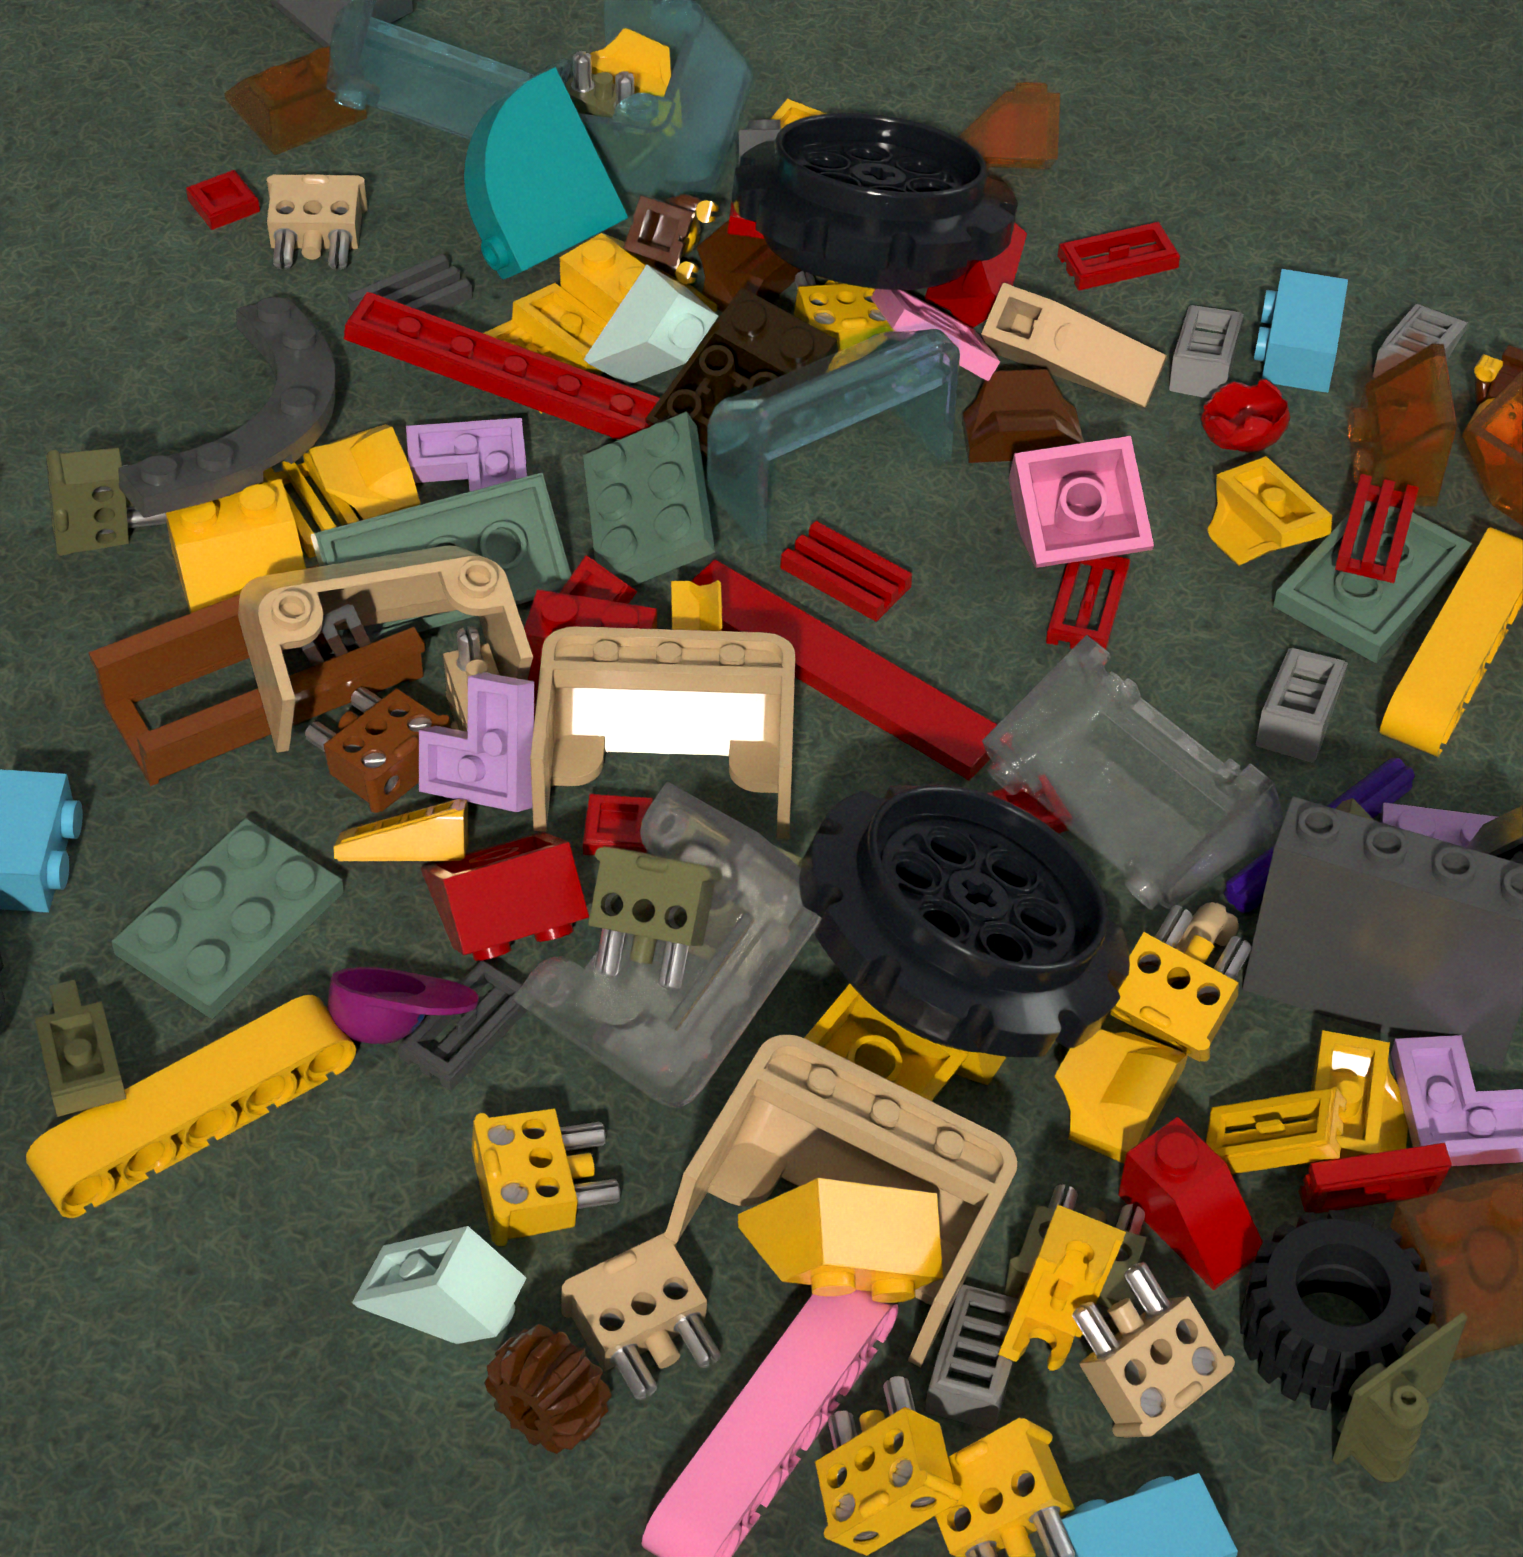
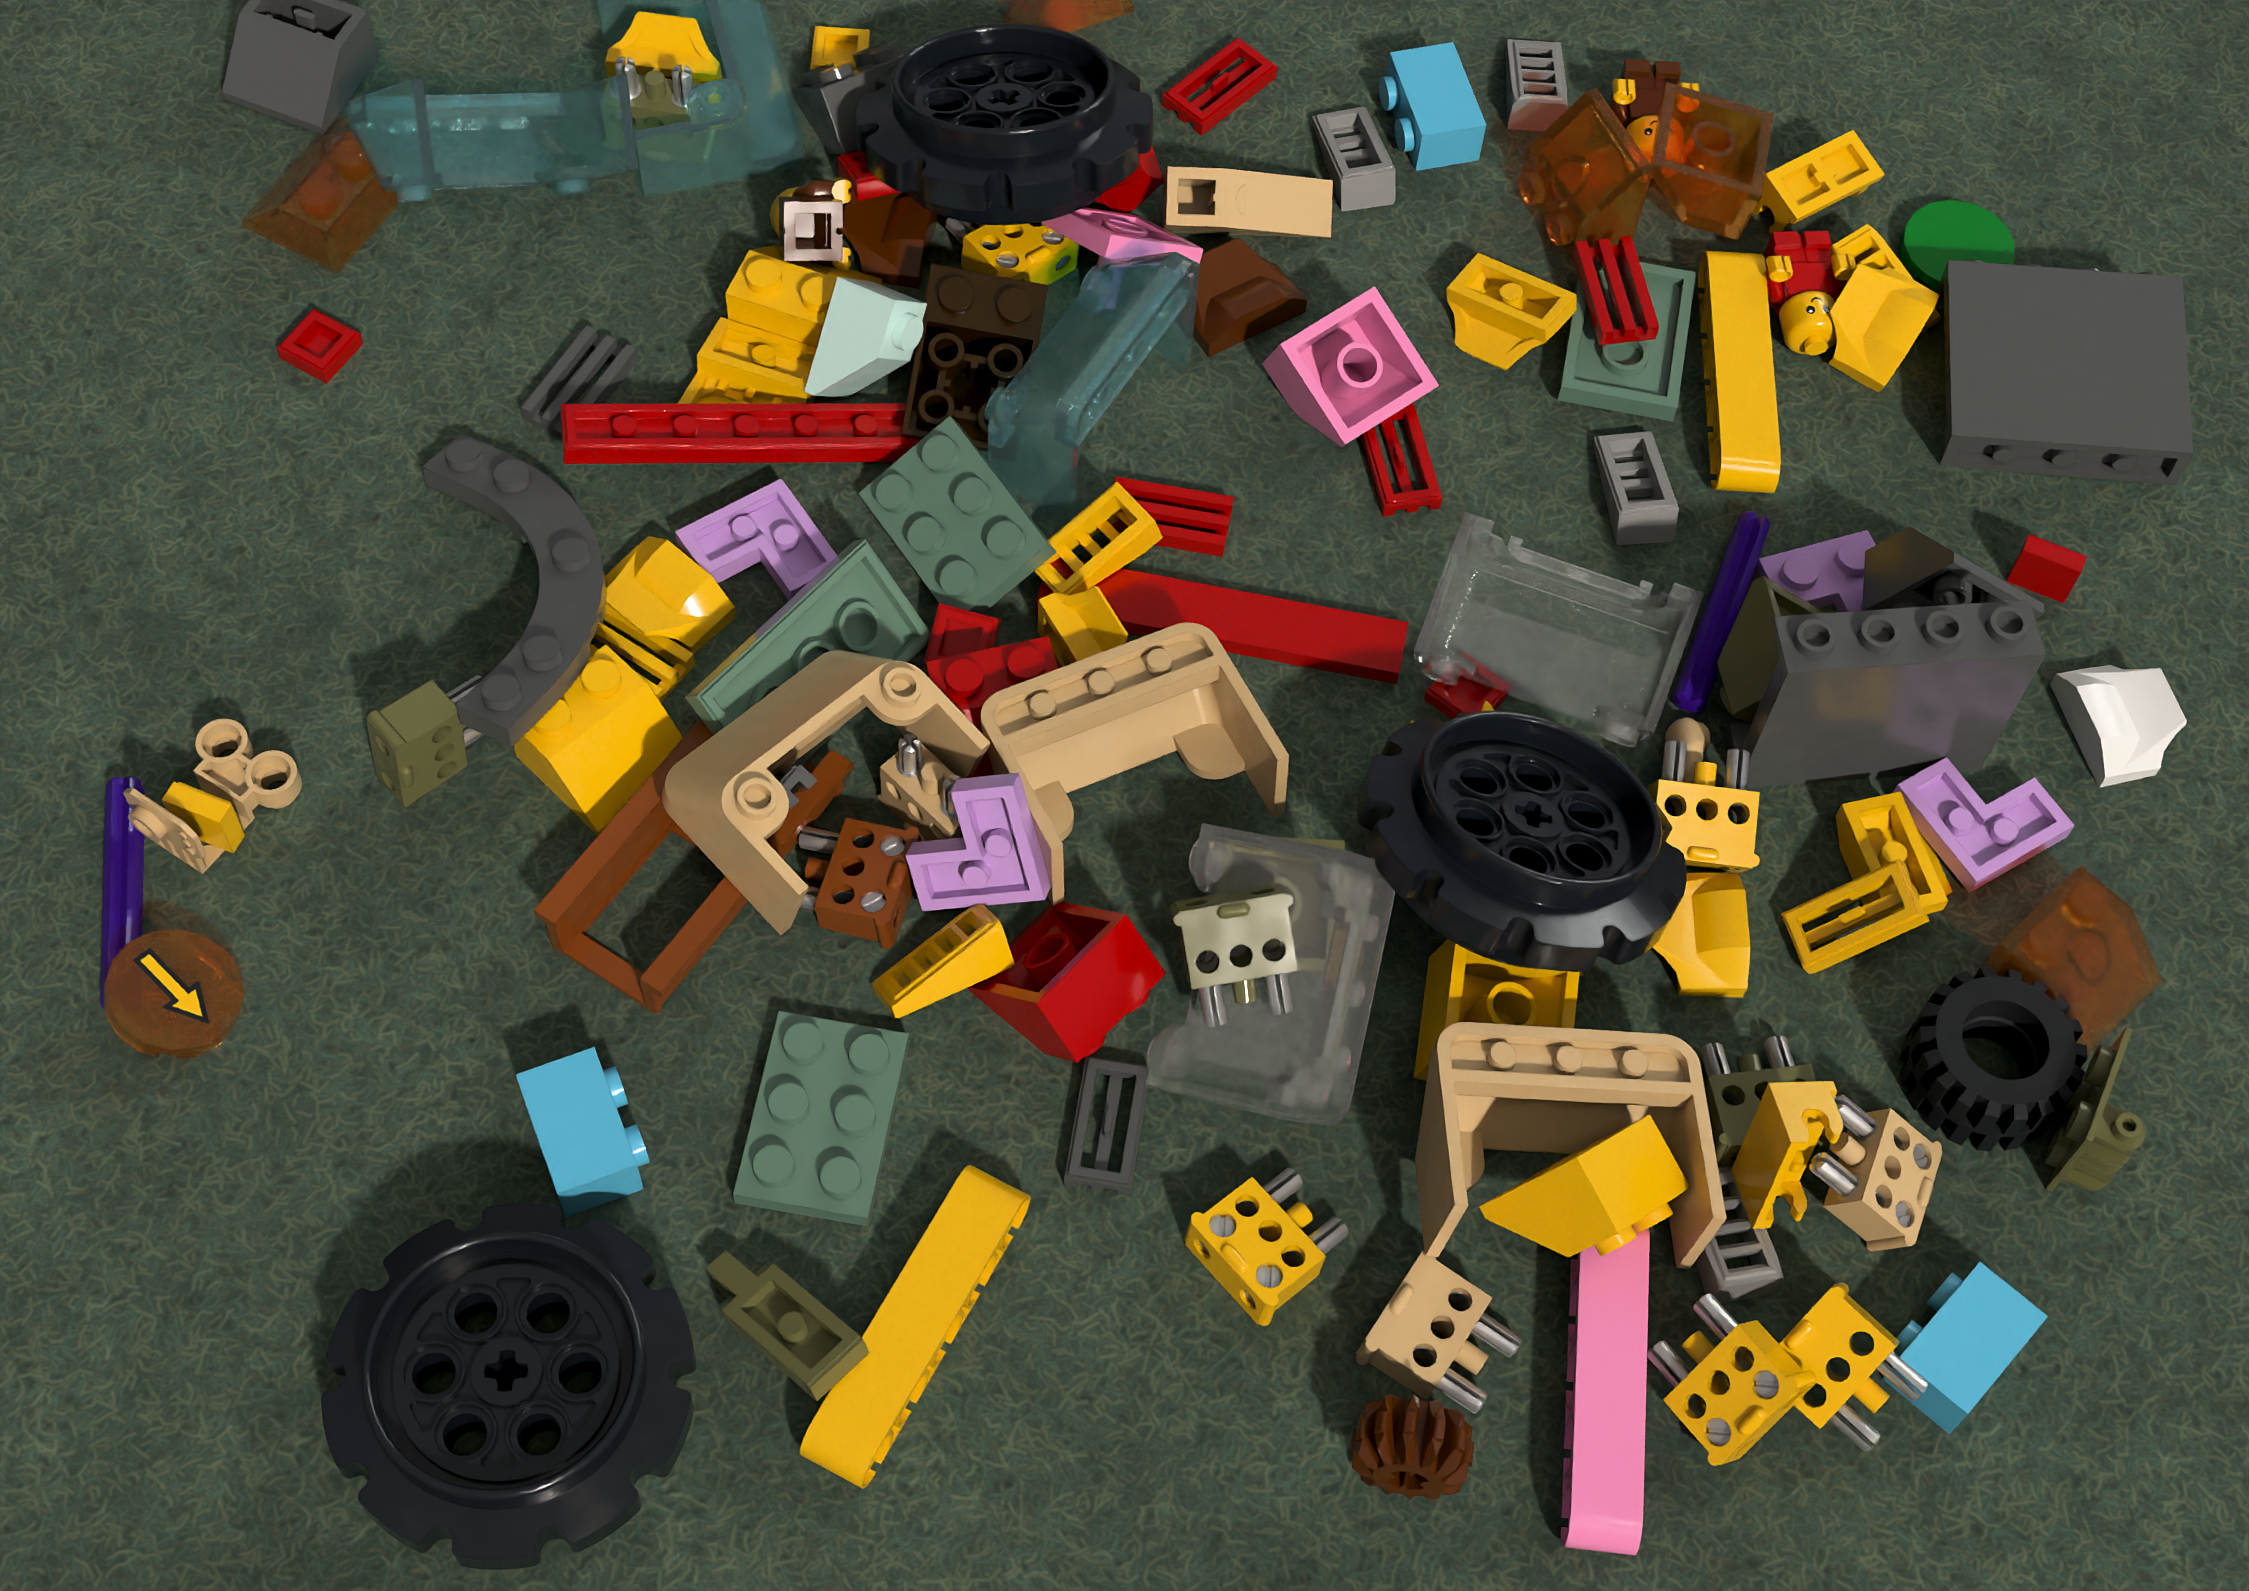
camera: 30 degrees left, 10 degrees up
(315, 215) = (432, 330): tan piece -> none
(390, 1004) = (1038, 1138): magenta cap -> none
(443, 1286) = (1251, 1393): light aqua slope -> none
(535, 178) = (649, 213): teal brick -> none
(614, 822) = (1121, 865): red tile -> none
(785, 557) = (1097, 518): none -> yellow slope
(1191, 1202) = (1822, 1012): red slope -> none
(1246, 416) = (1434, 216): red hair -> none
(1374, 1178) = (1951, 922): red tile -> none

